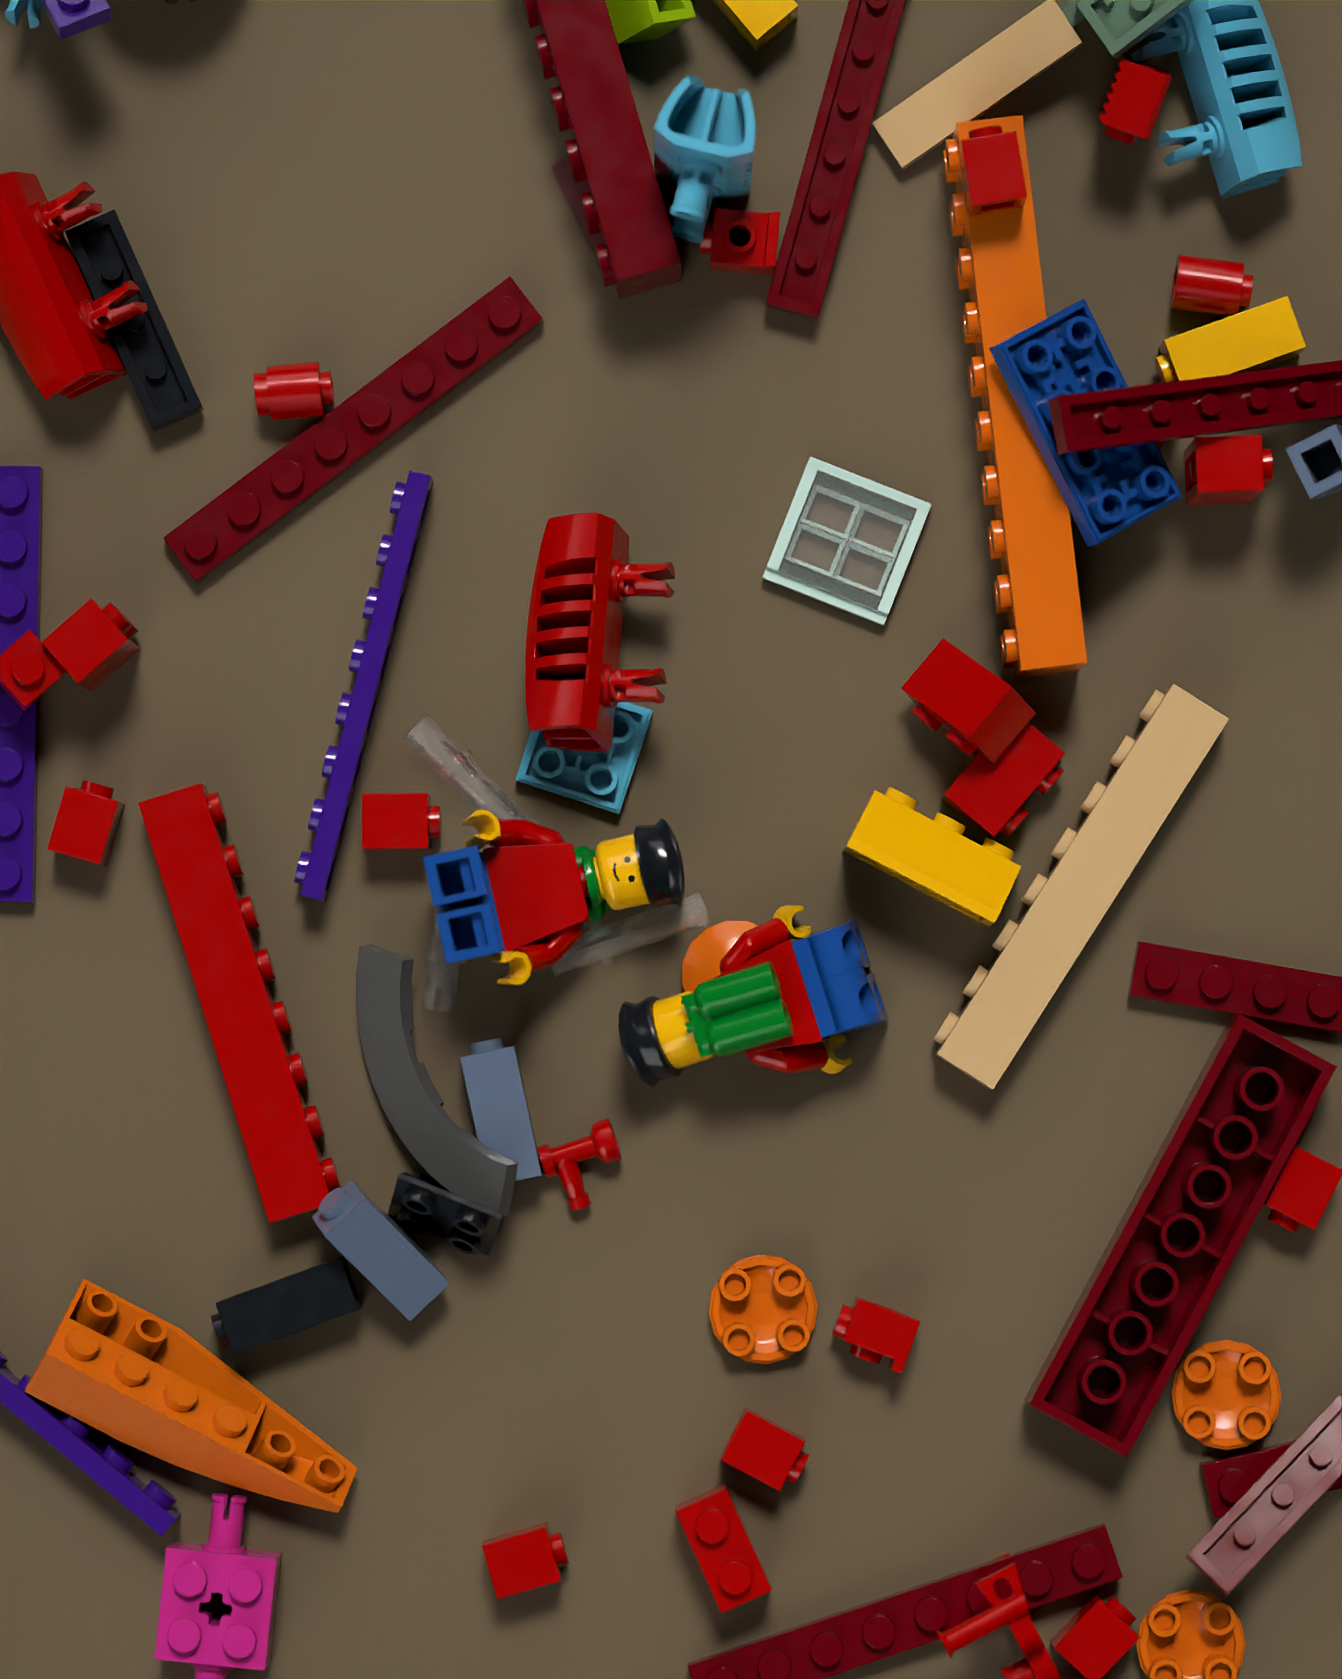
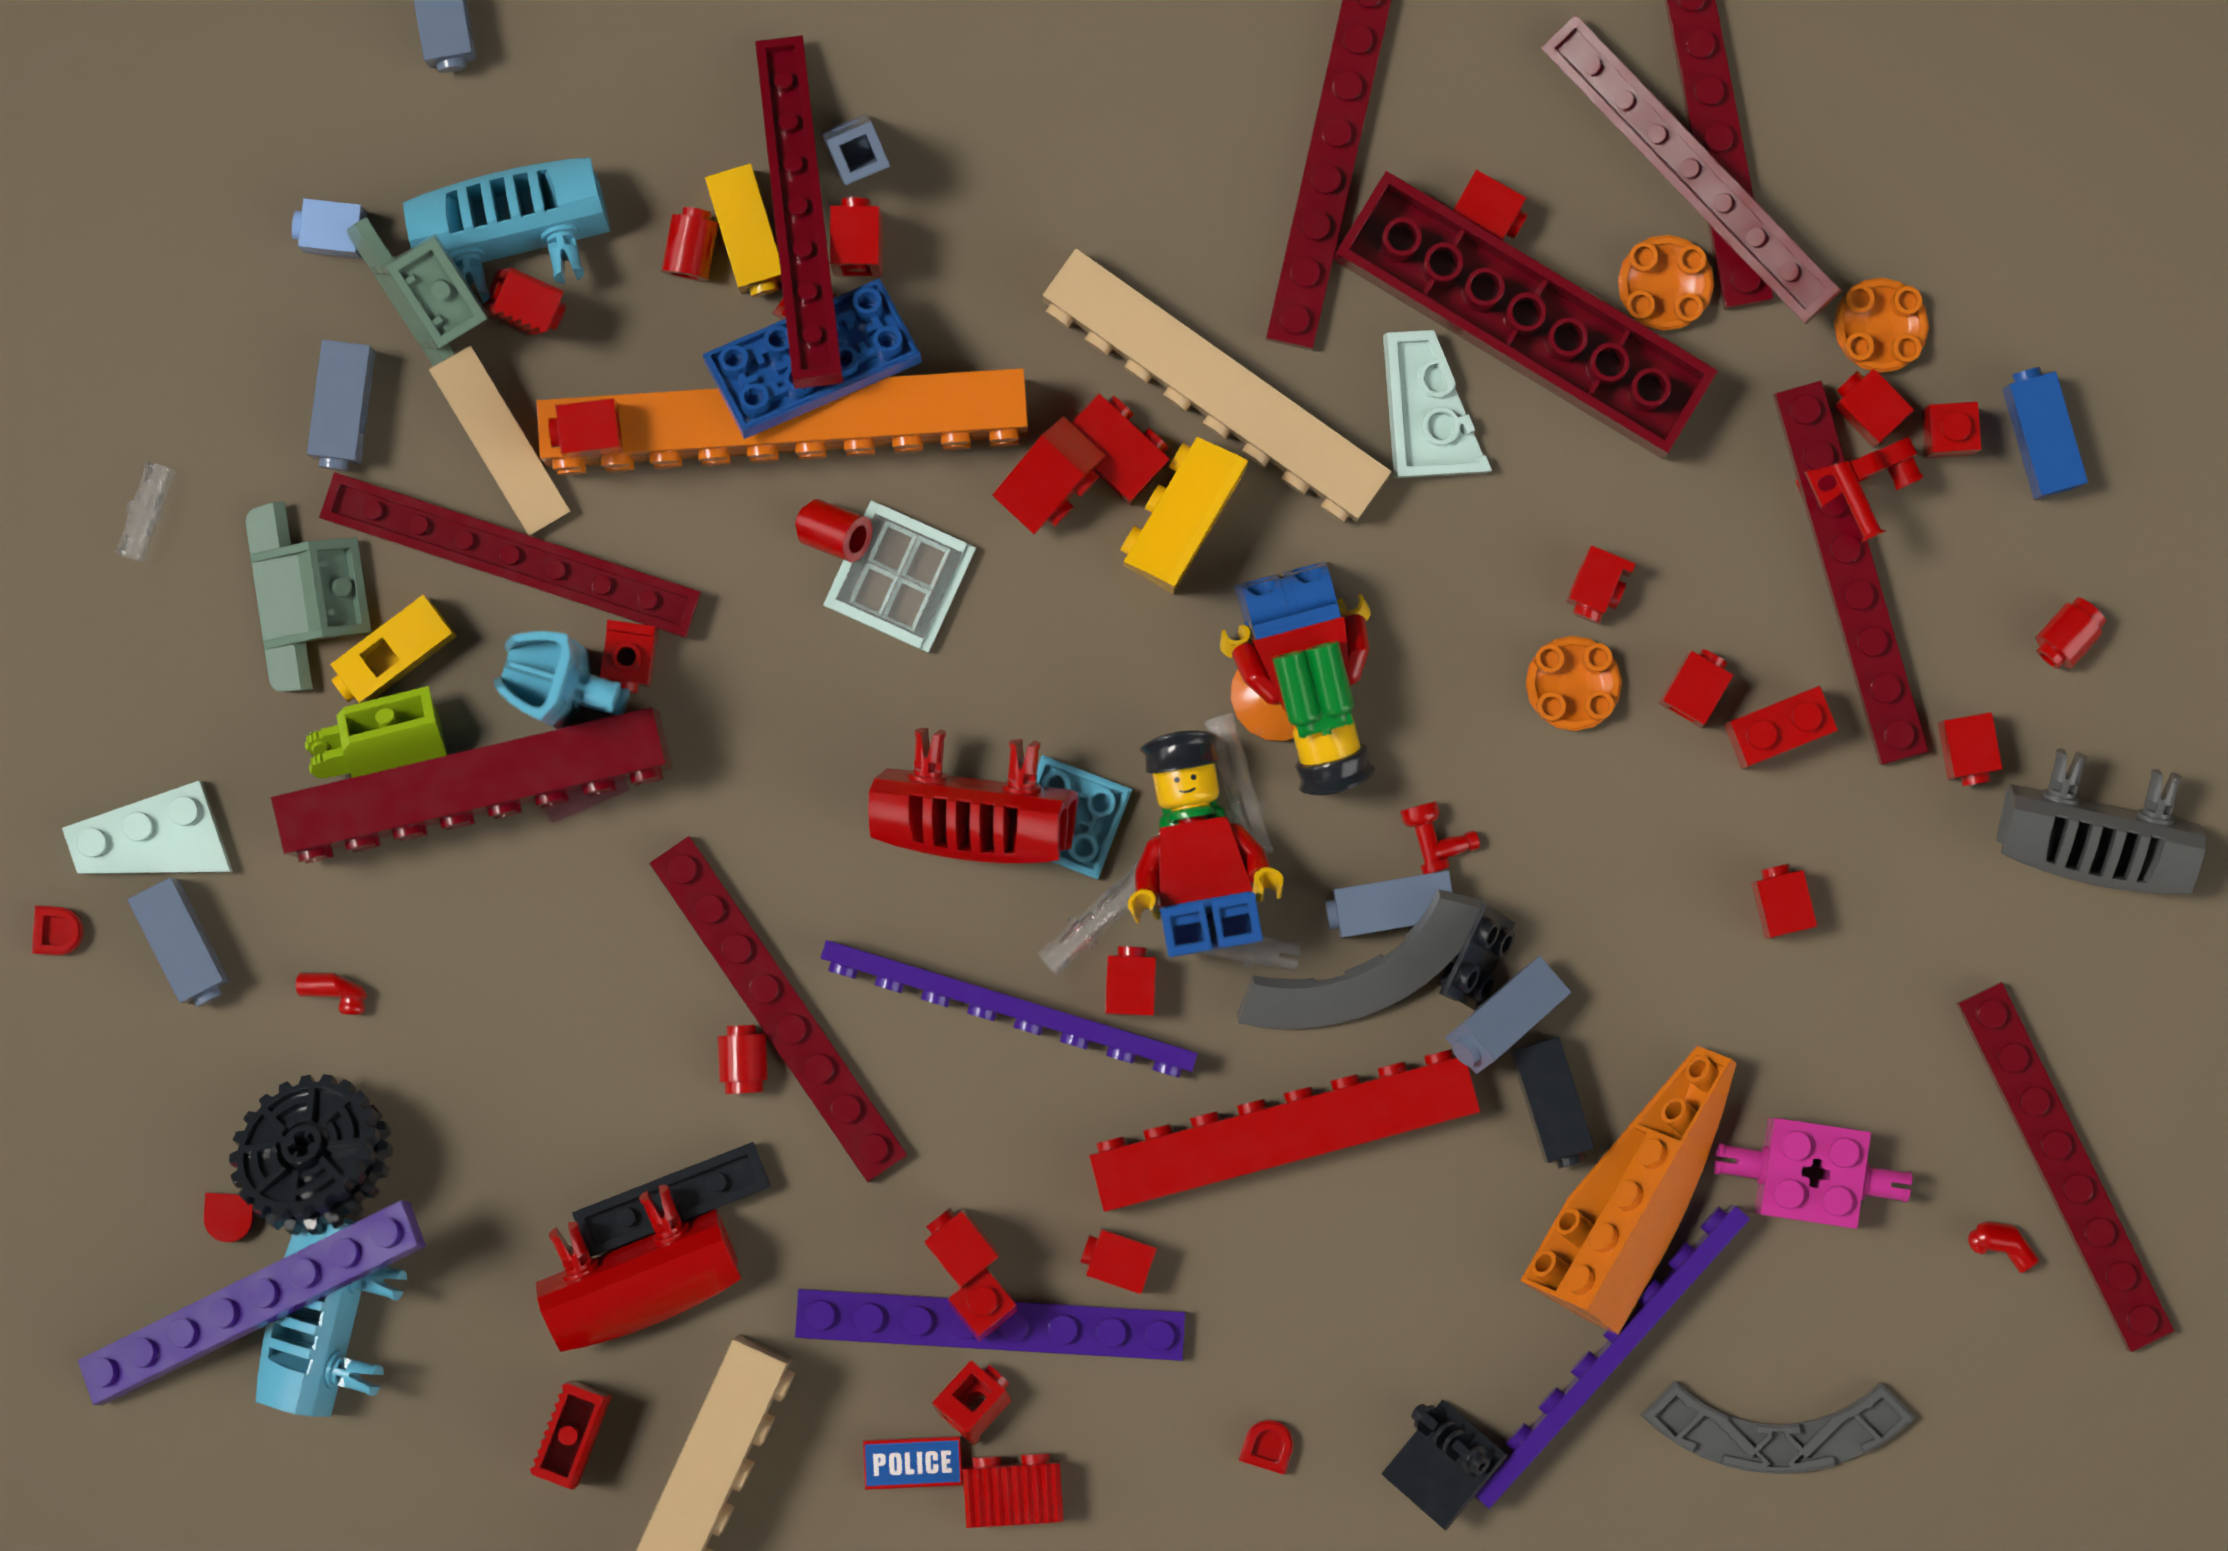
camera: 90 degrees left, 0 degrees up
(894, 463) = (834, 530): none -> red brick
(1060, 1127) = (1425, 412): none -> light aqua wing

